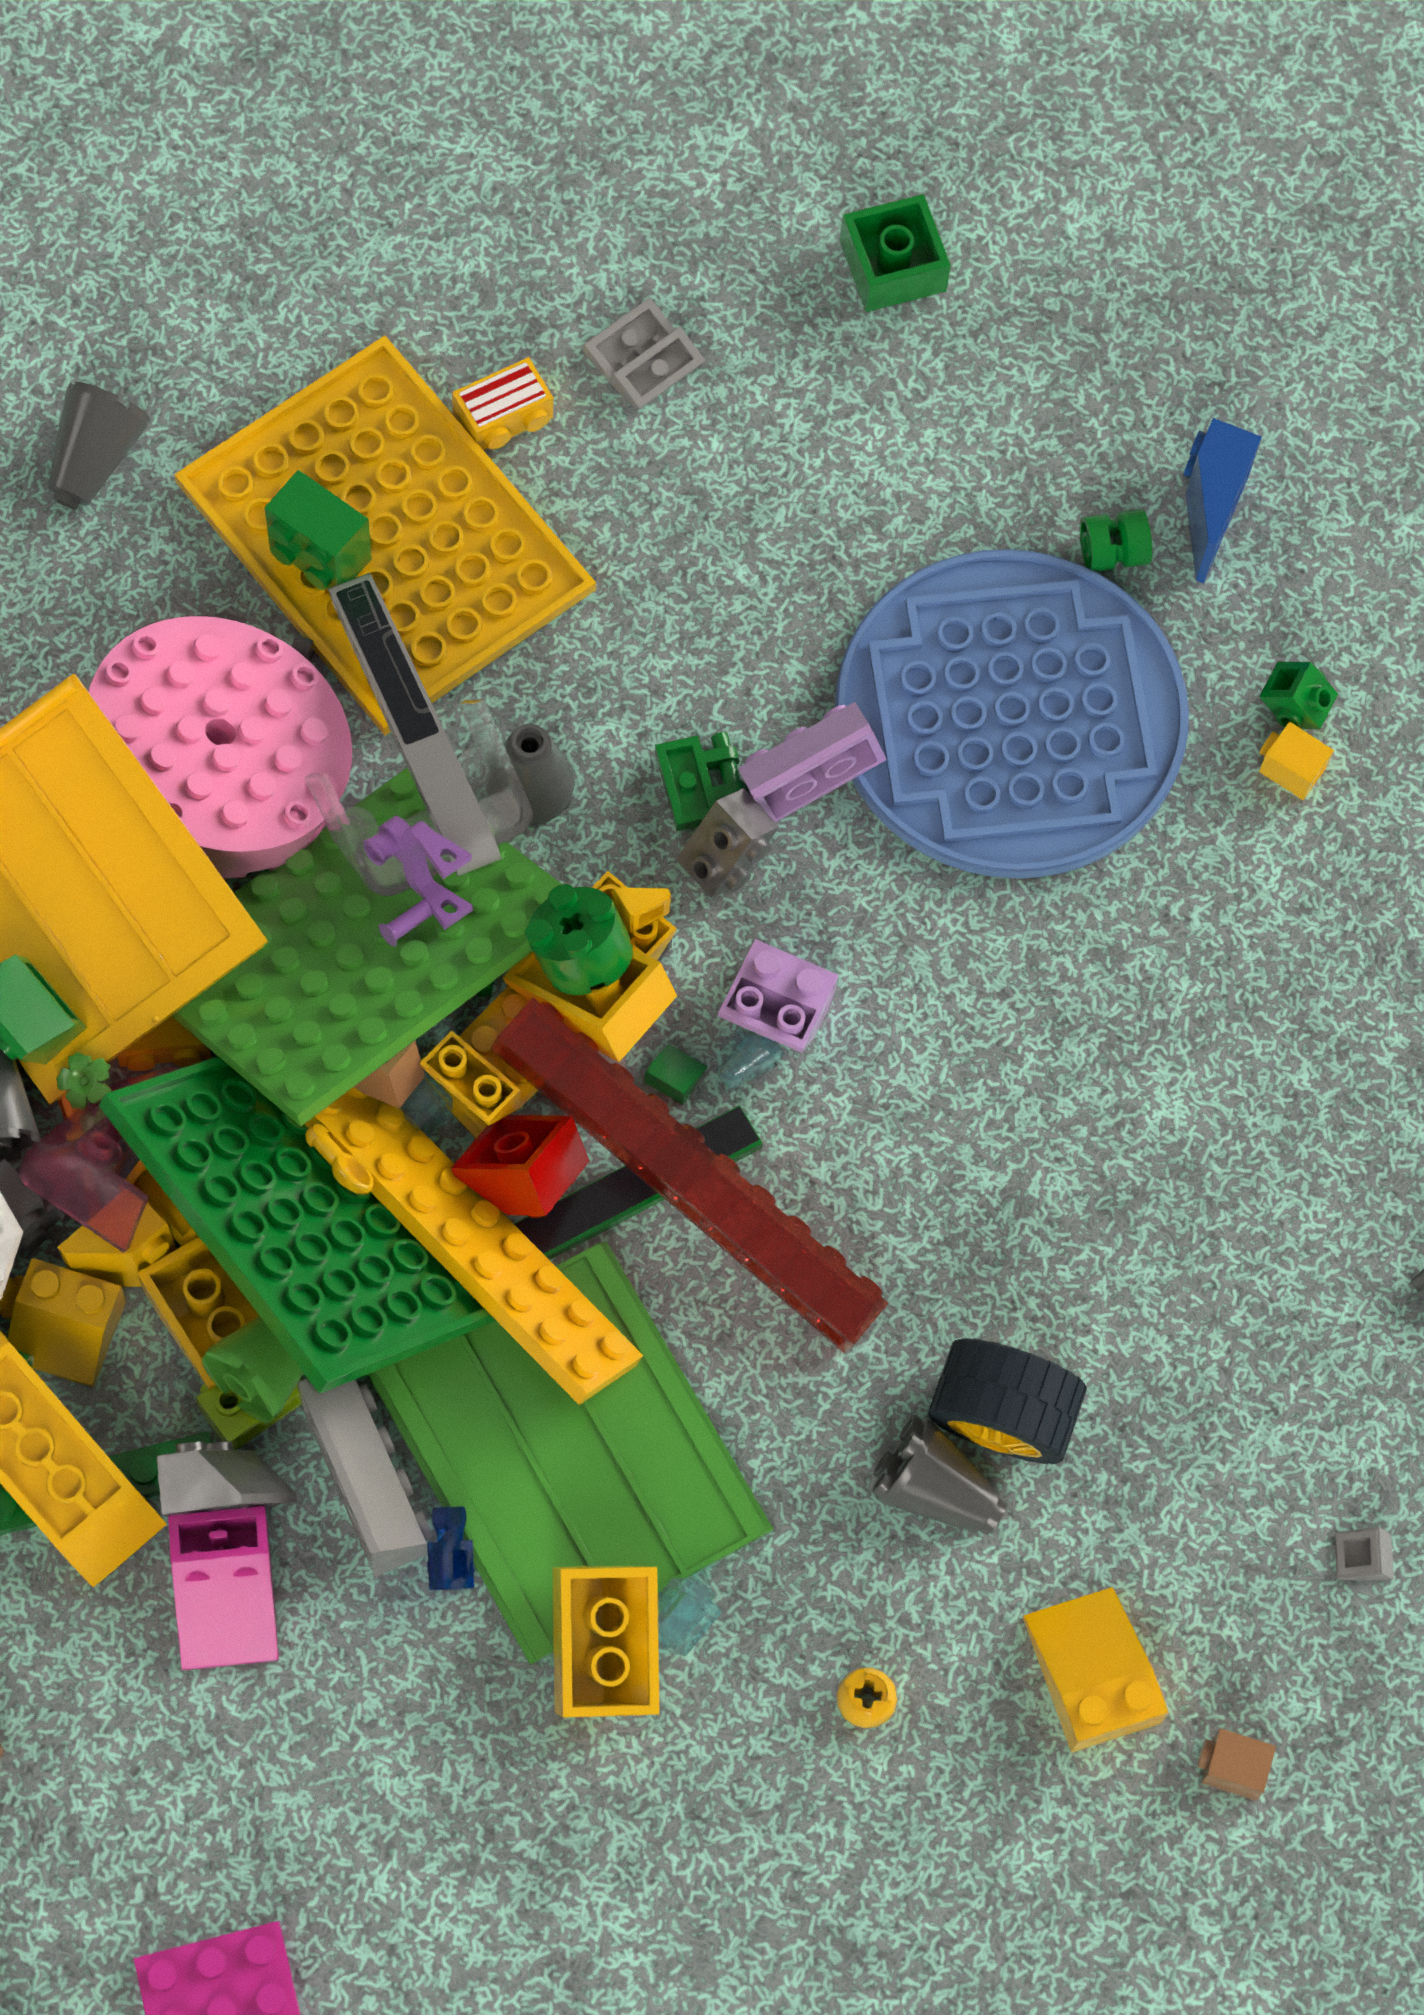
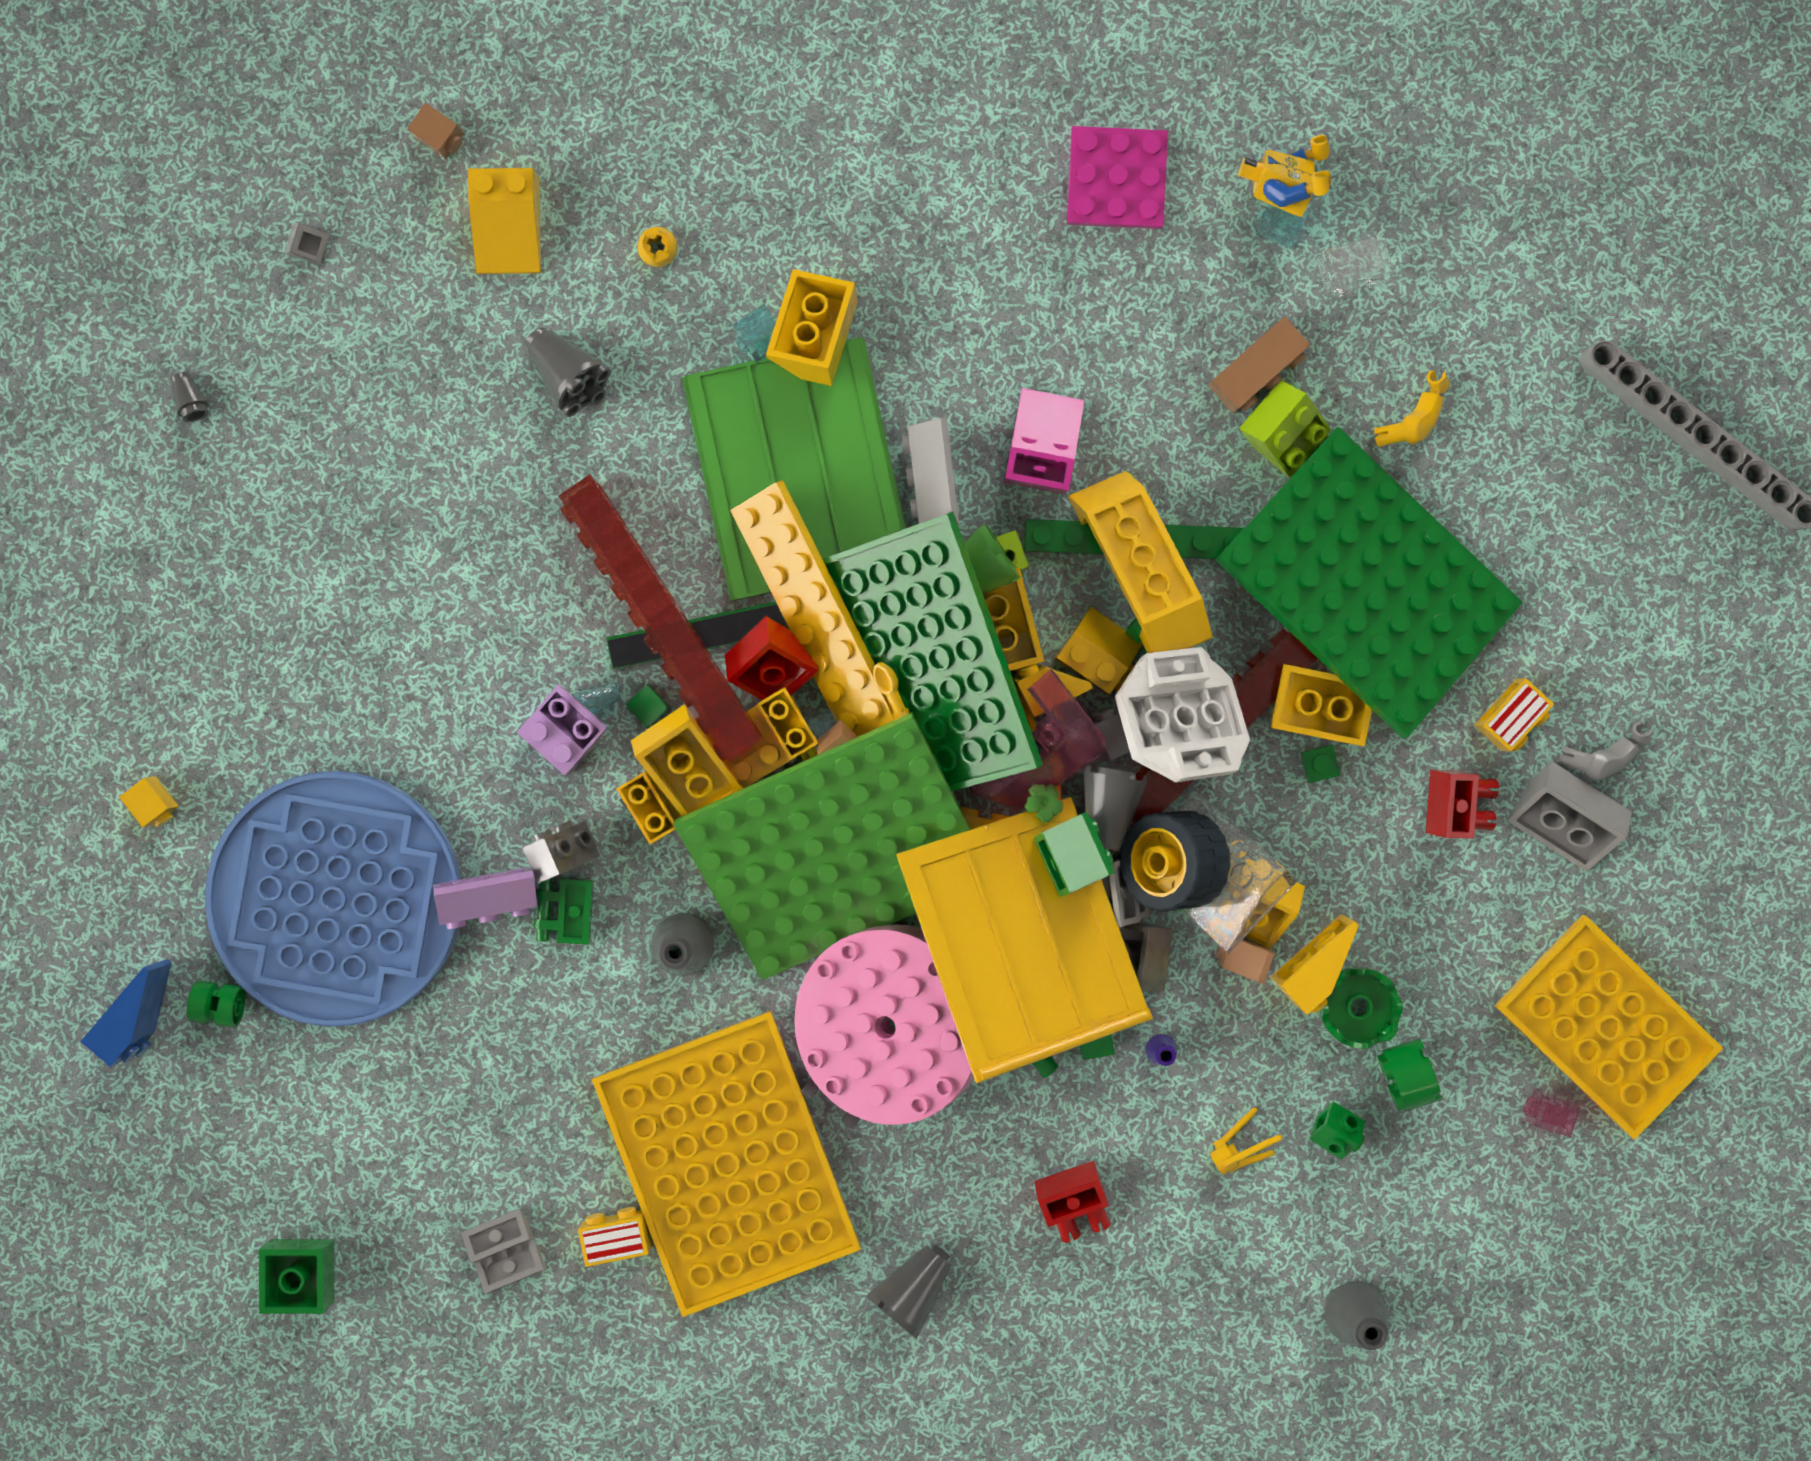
camera: 160 degrees left, 20 degrees up
(217, 1478) = (1028, 498): flat silver slope -> none
(317, 532) = (775, 1165): green brick -> none
(411, 847) = (774, 875): medium lavender piece -> none
(413, 721) = (750, 991): beam -> none
(450, 1556) = (893, 417): clear blue plate -> none
(490, 778) = (754, 910): clear windscreen -> none
(579, 939) = (684, 790): green brick -> none
(641, 905) = (636, 803): yellow slope -> none
(1007, 1400) = (502, 400): black wheel -> none
(1298, 695) = (129, 847): green brick -> none

